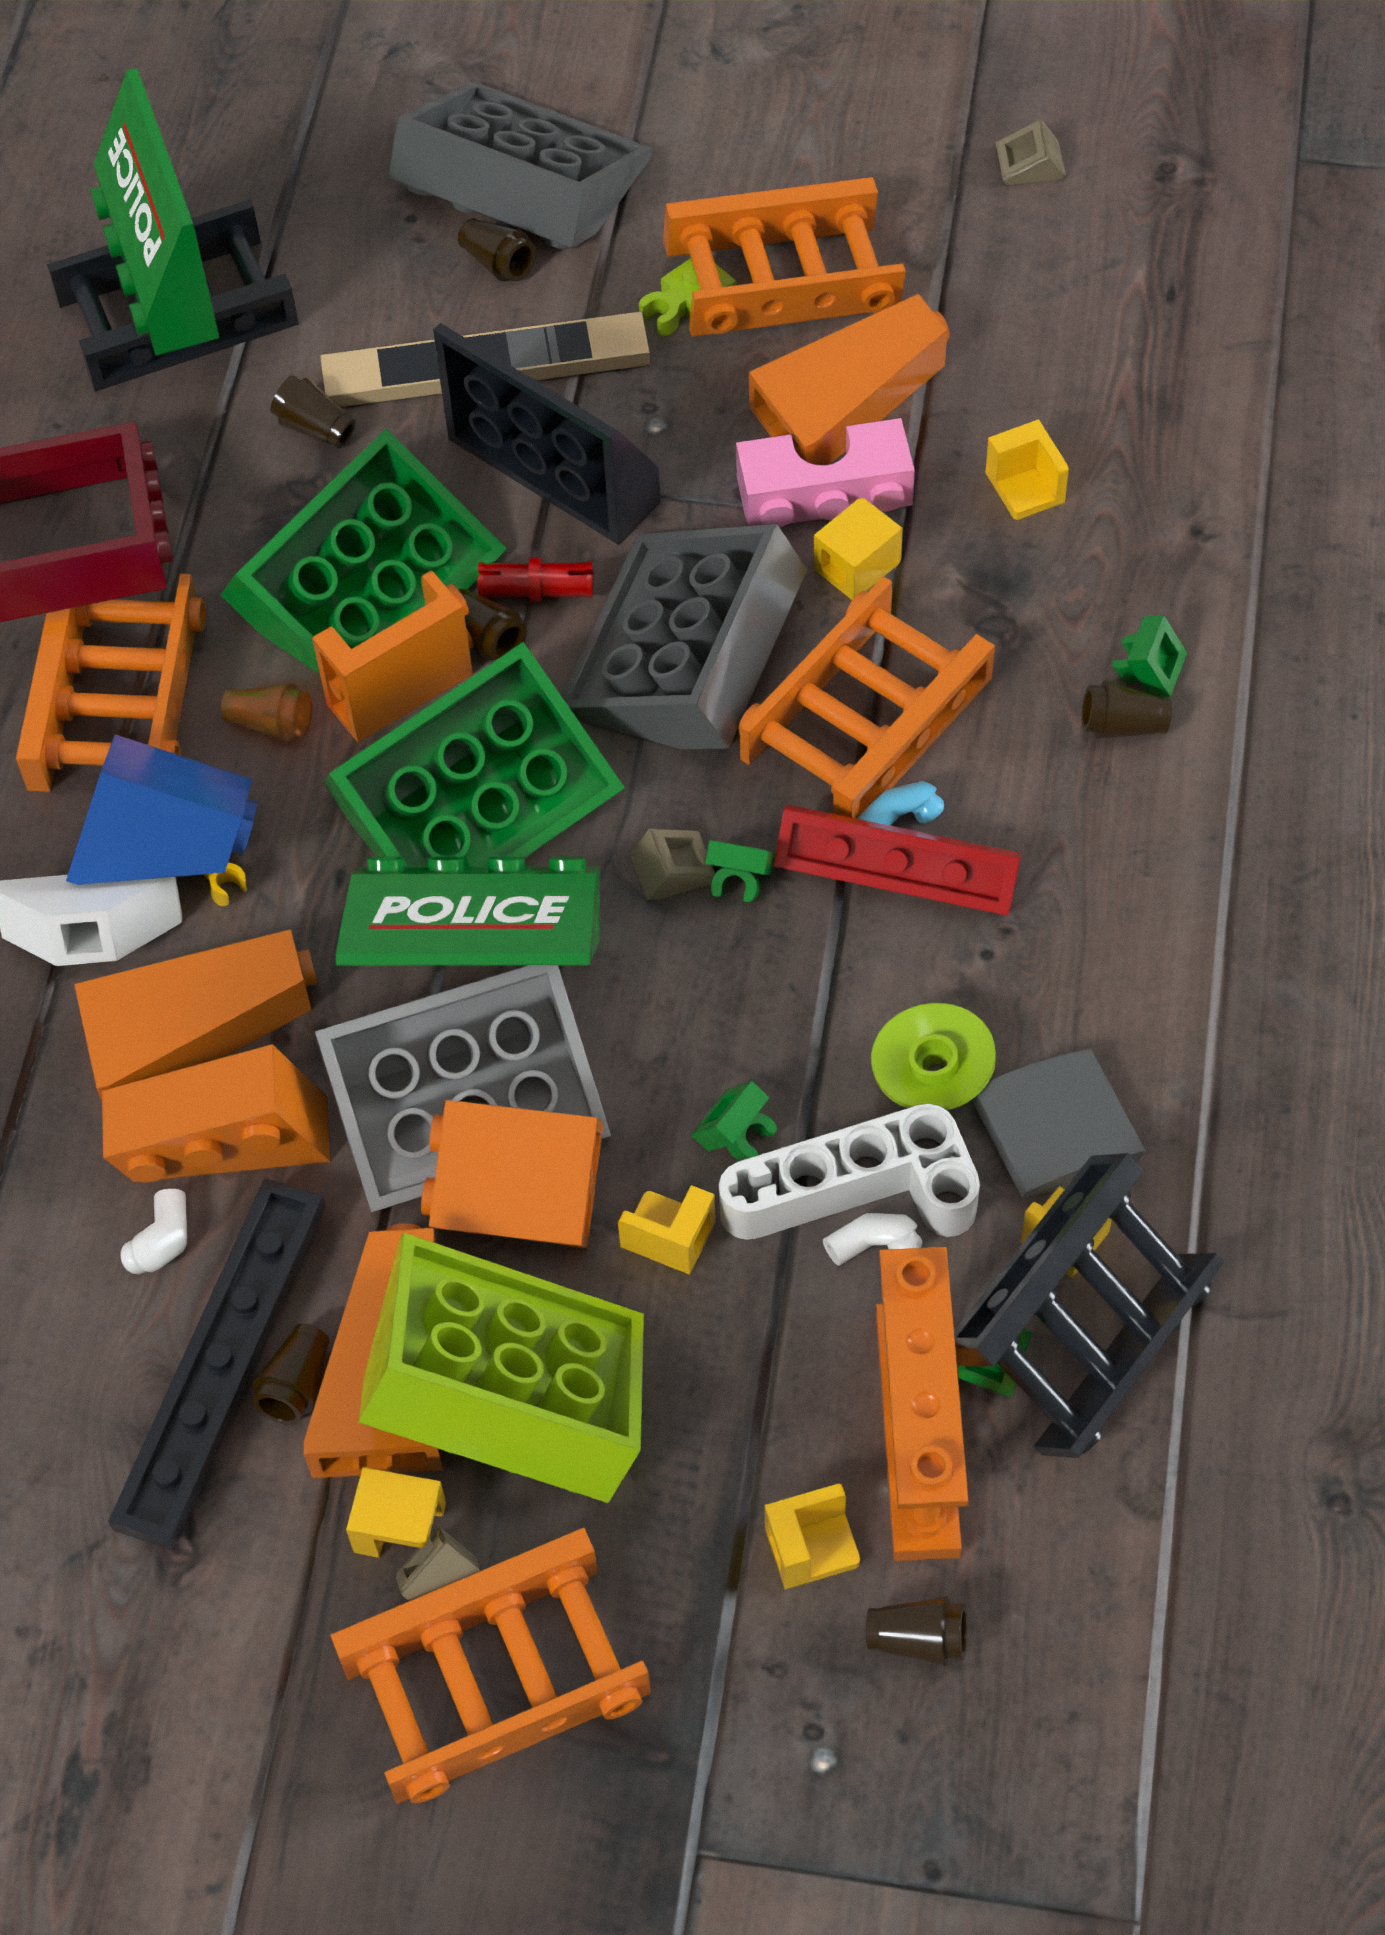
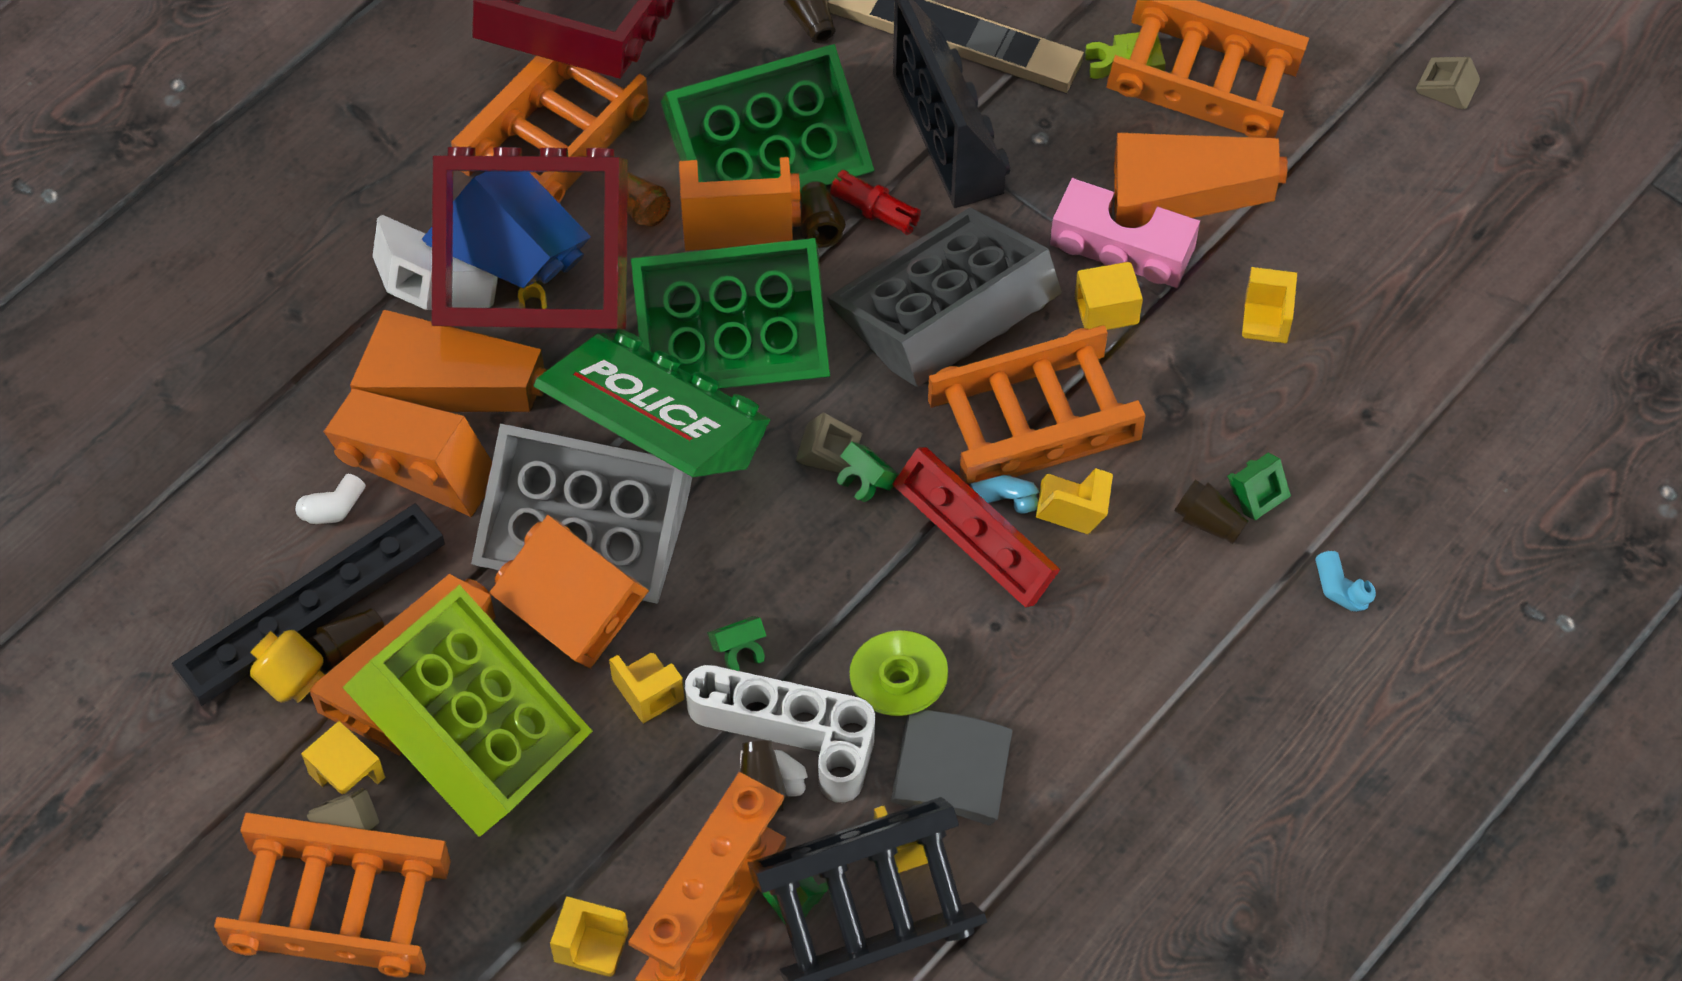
camera: 30 degrees right, 0 degrees up
(188, 703) = (550, 160): none -> dark red window
(251, 1444) = (286, 666): none -> yellow head
(861, 1241) = (760, 764): none -> dark brown cone
(984, 779) = (1075, 504): none -> yellow panel
(1302, 718) = (1348, 594): none -> medium azure arm

